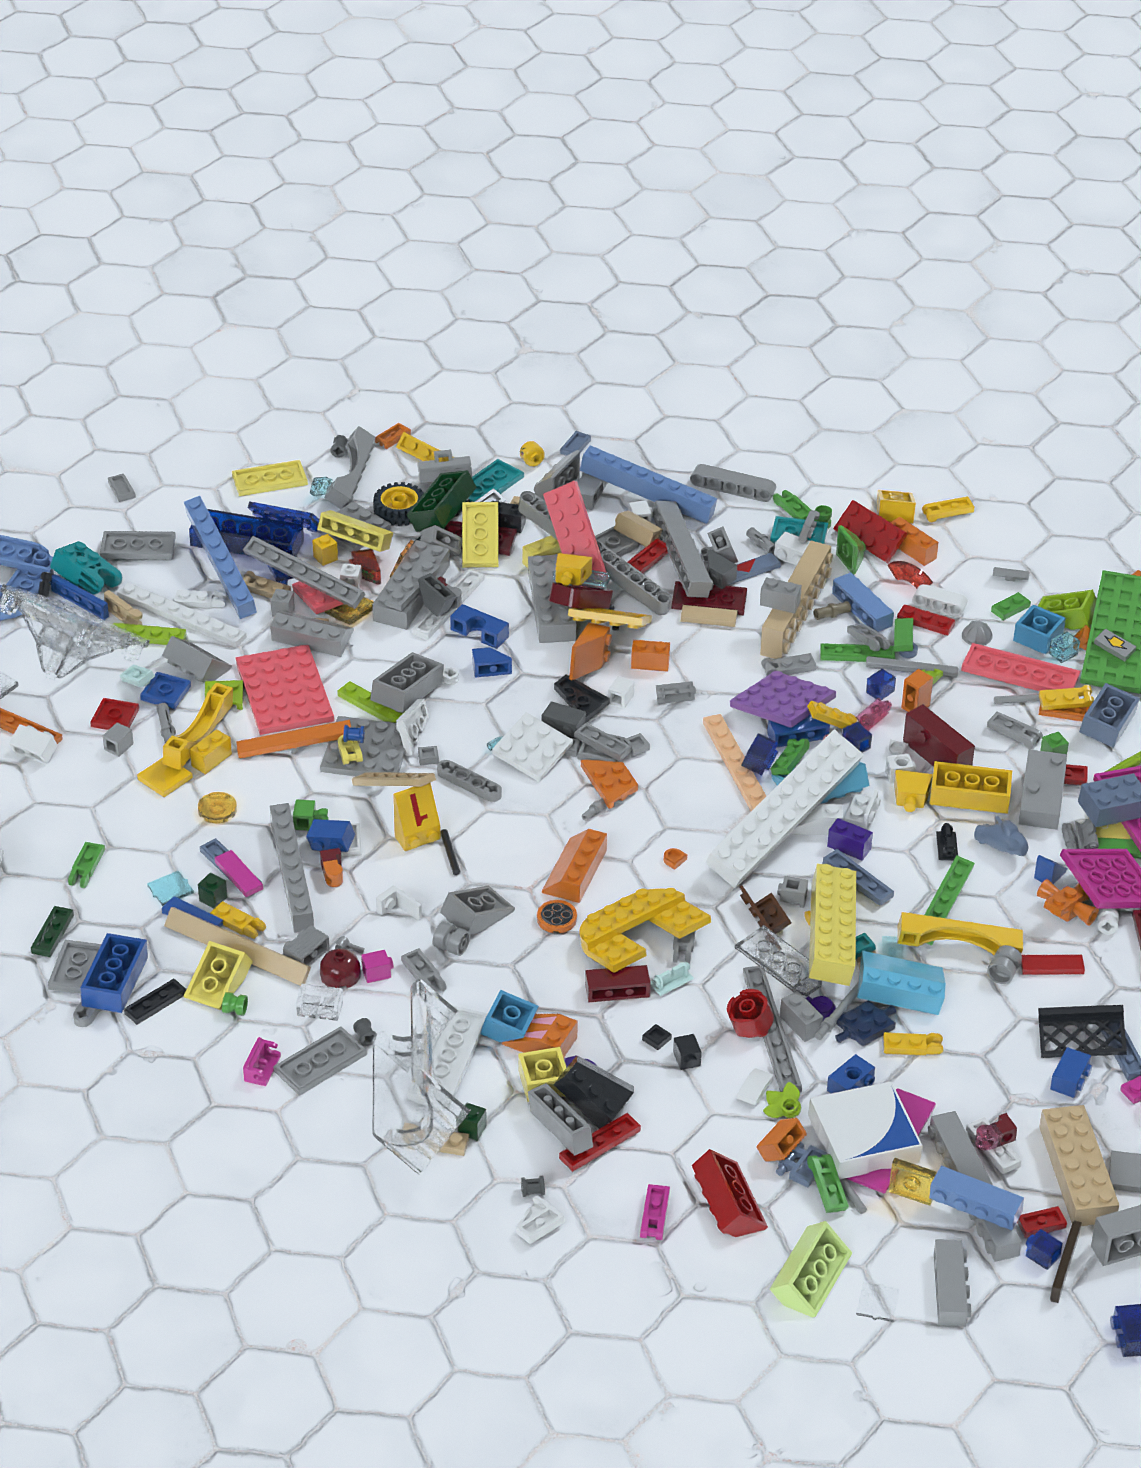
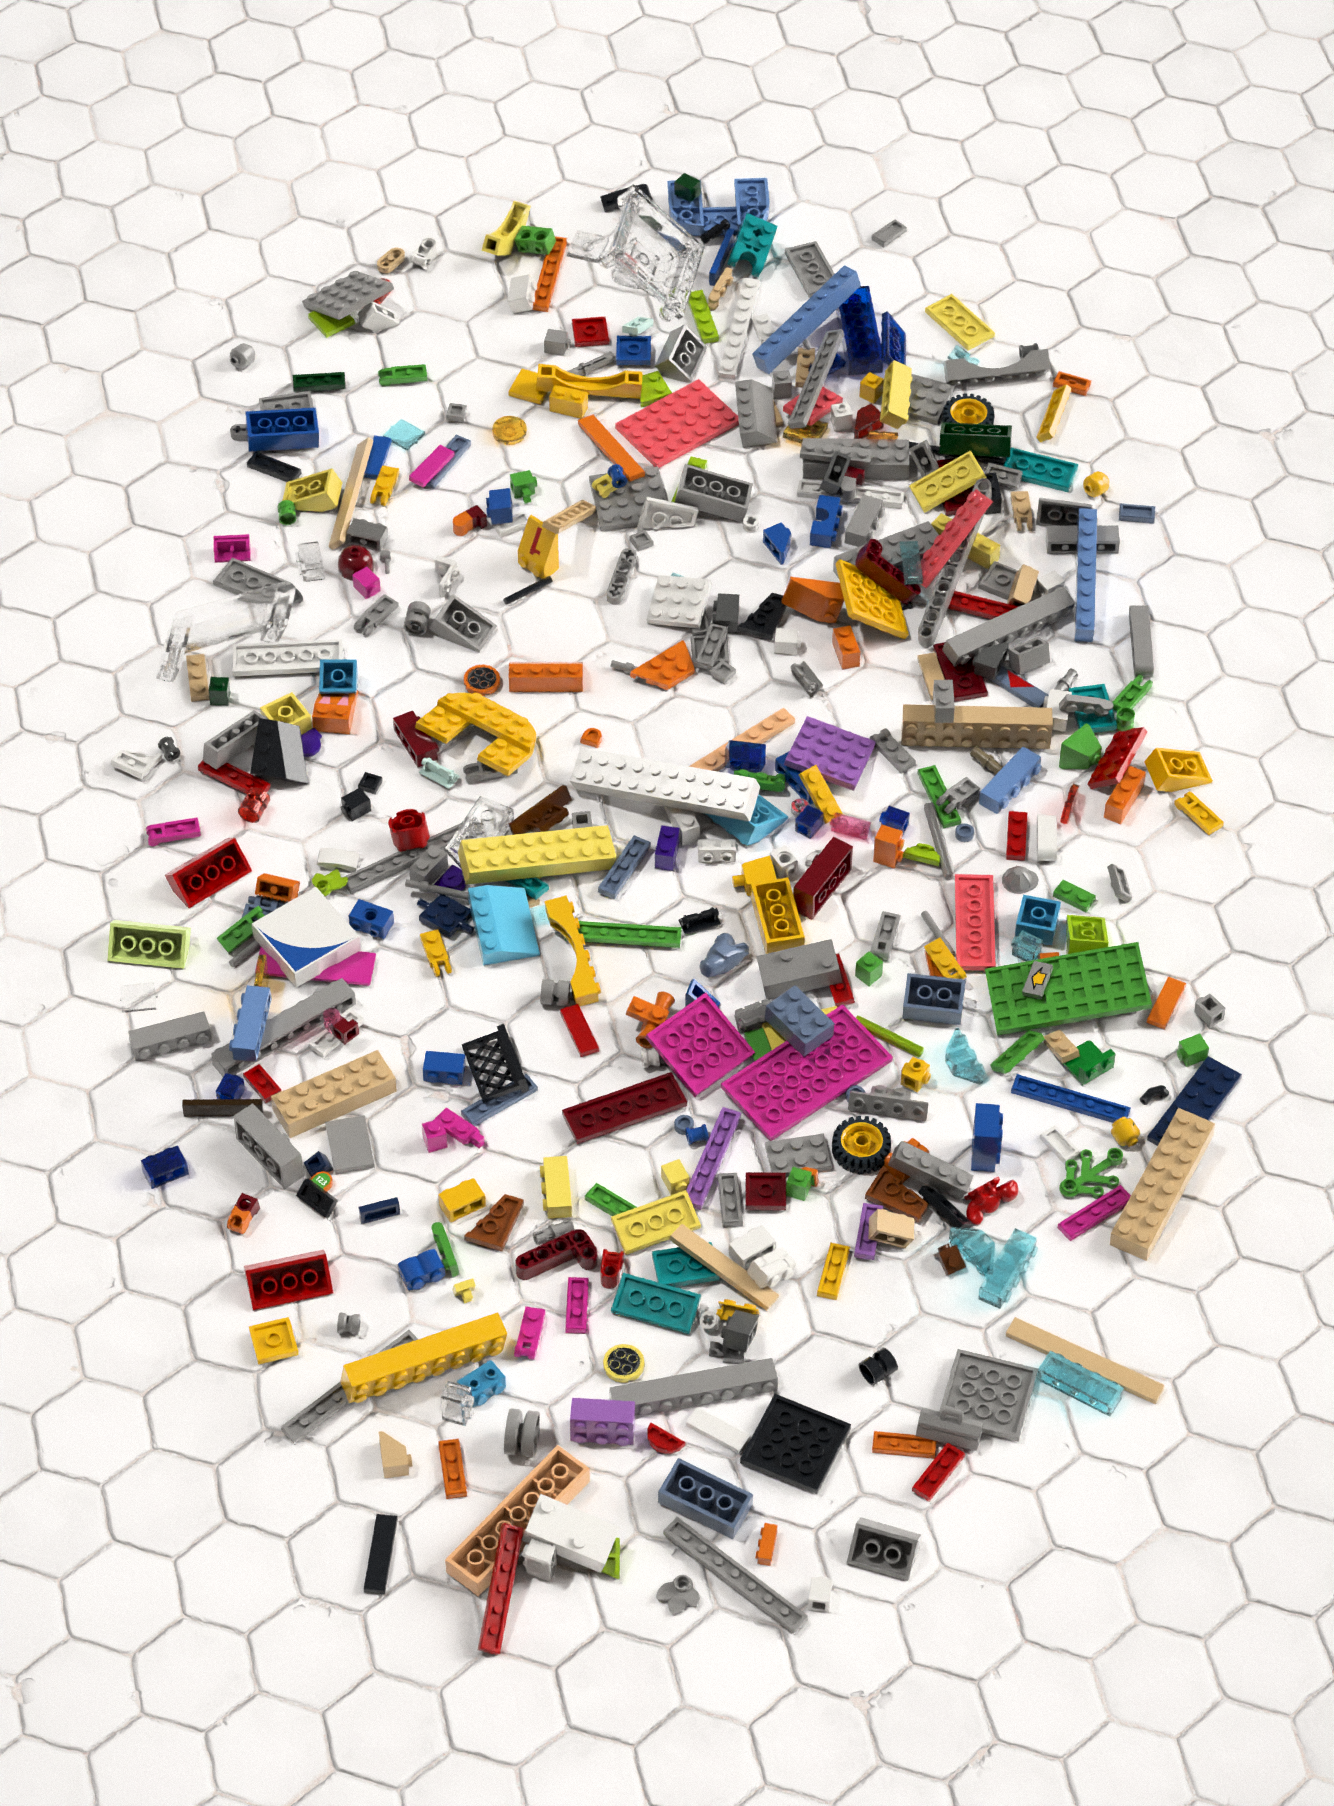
camera: 70 degrees right, 10 degrees up
(168, 837) = (456, 412): none -> light grey plate
(212, 890) = (404, 457): dark green brick -> none
(291, 867) = (452, 495): light grey brick -> none
(431, 469) = (1029, 430): light grey piece -> none
(494, 601) = (864, 521): none -> light grey brick
(572, 569) = (899, 547): yellow torso -> none
(652, 1132) = (254, 805): none -> clear red wheel
(903, 635) = (977, 821): bright green tile -> none

